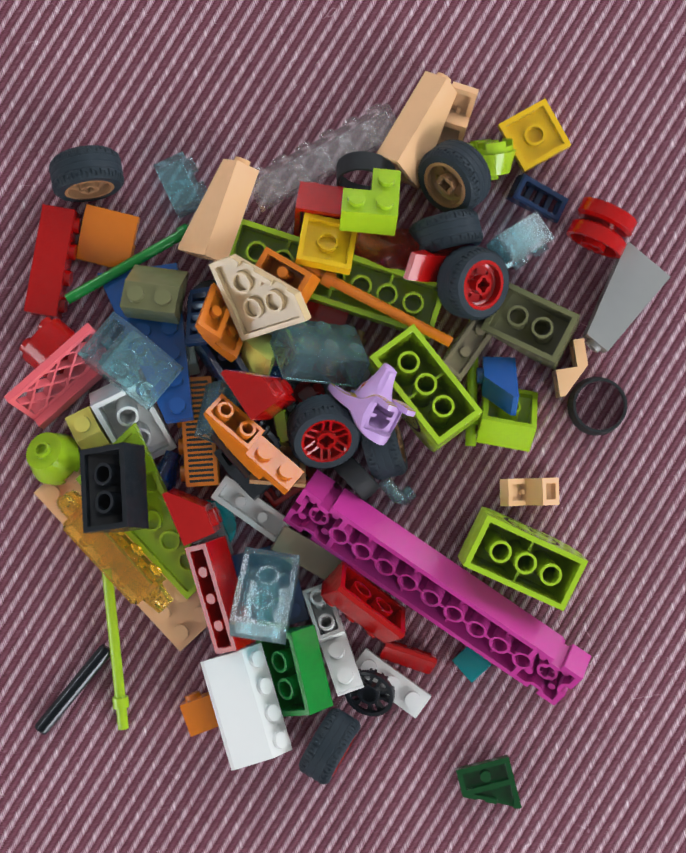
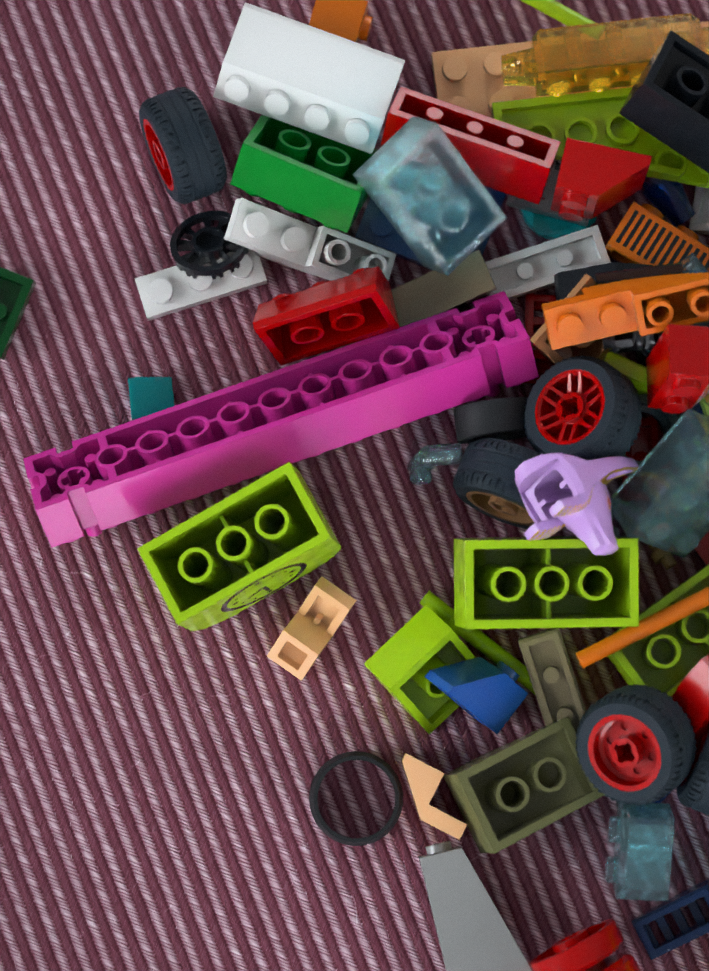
camera: 120 degrees right, 5 degrees down
(408, 656) = (217, 326): red slope -> none

